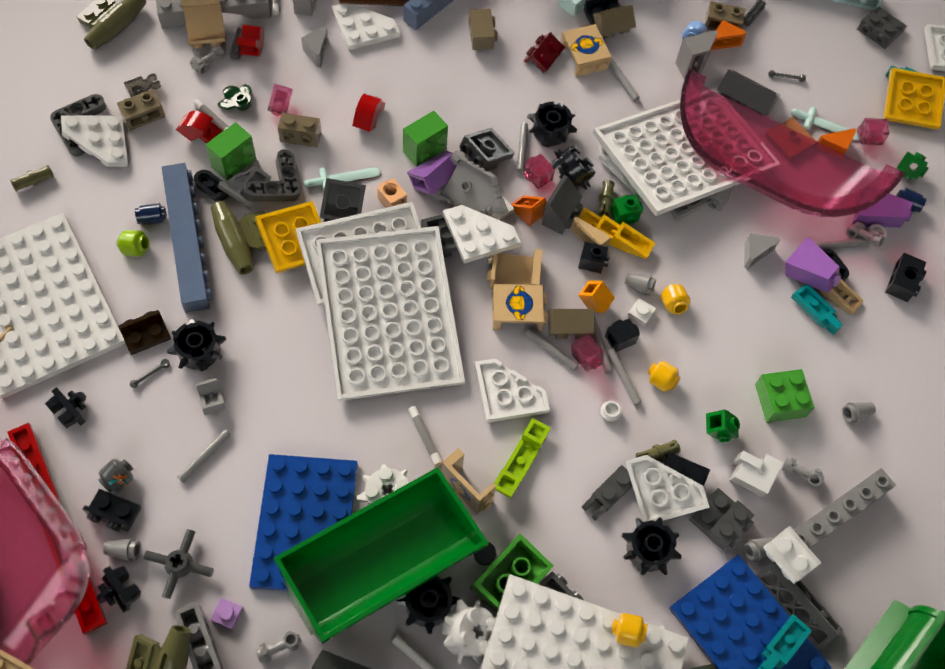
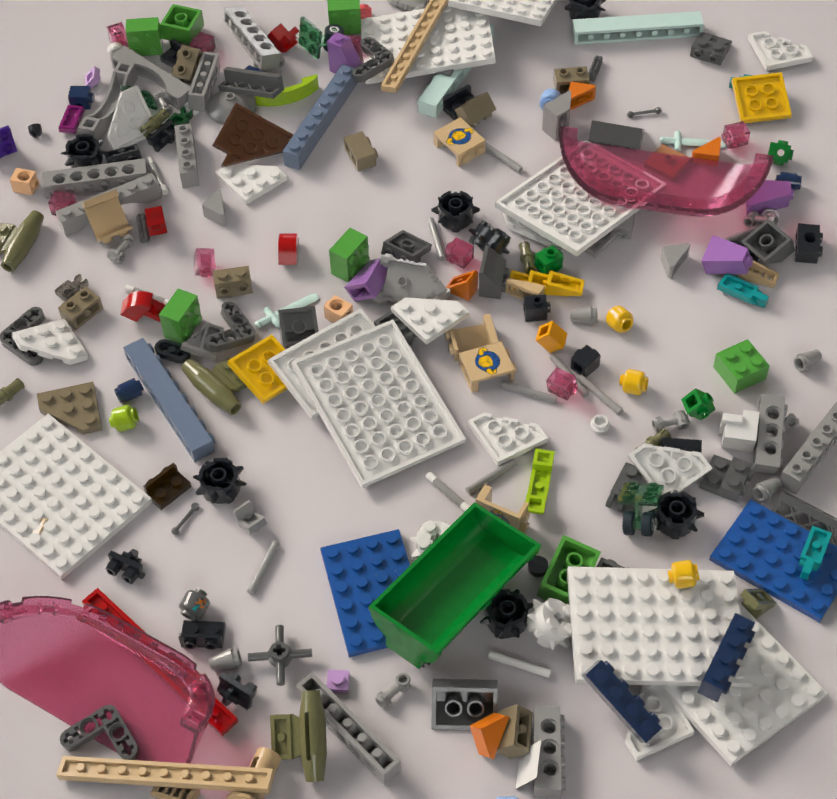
camera: 10 degrees left, 10 degrees down
(91, 213) = (73, 407): none -> dark tan plate
(236, 98) = (162, 273): dark green plate -> none
(475, 432) = (491, 476): none -> light grey bar
(544, 52) = (423, 154): dark red bracket -> none
(571, 323) = (537, 364): dark tan brick -> none
(621, 516) = (639, 495): none -> clear green plate
(641, 312) = (594, 339): white plate -> none
(697, 434) = (679, 419): none -> light grey bar
(766, 513) = (762, 461): none -> light grey brick
(791, 555) = (794, 481): white bracket -> none
(864, 265) = (769, 243): none -> dark grey slope

